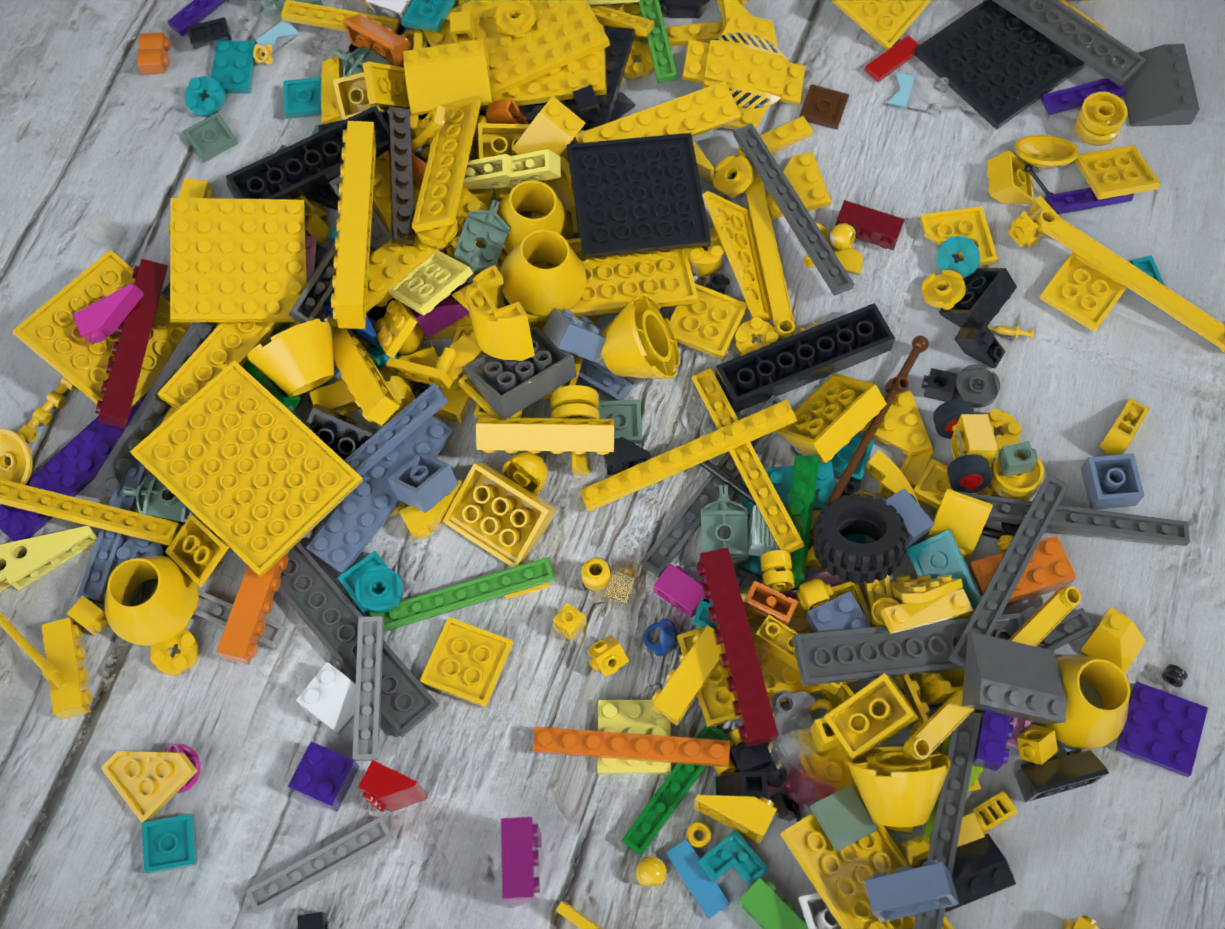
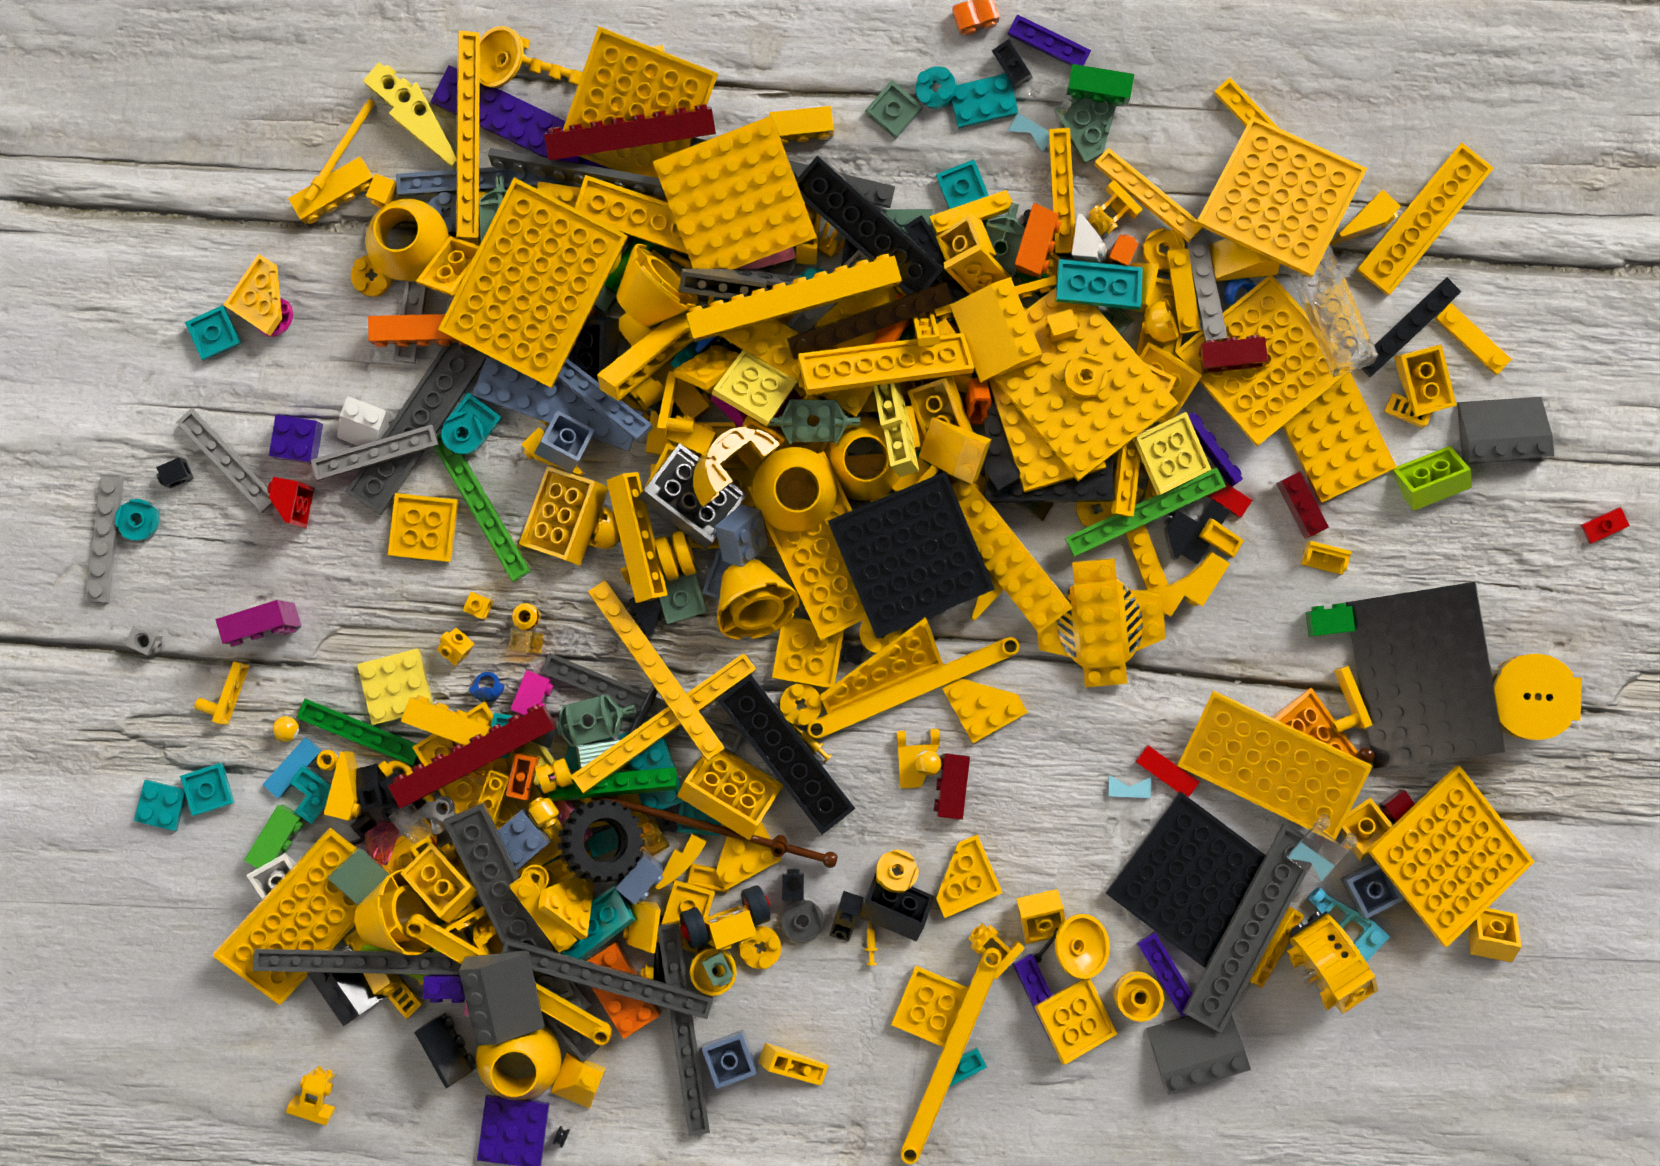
camera: 75 degrees right, 20 degrees up
(107, 314) = (637, 102): dark pink slope -> none
(257, 53) = (999, 125): yellow plate -> none
(631, 746) = (380, 687): orange plate -> none
(740, 183) = (974, 630): yellow plate -> none
(787, 134) = (1039, 678): yellow plate -> none
(793, 210) = (945, 707): dark grey plate -> none
(824, 106) = (1088, 712): reddish brown tile -> none
(911, 891) = (301, 942): sand blue brick -> none
(953, 246) = (941, 889): teal plate -> none
(1037, 744) = (461, 1027): yellow brick -> none

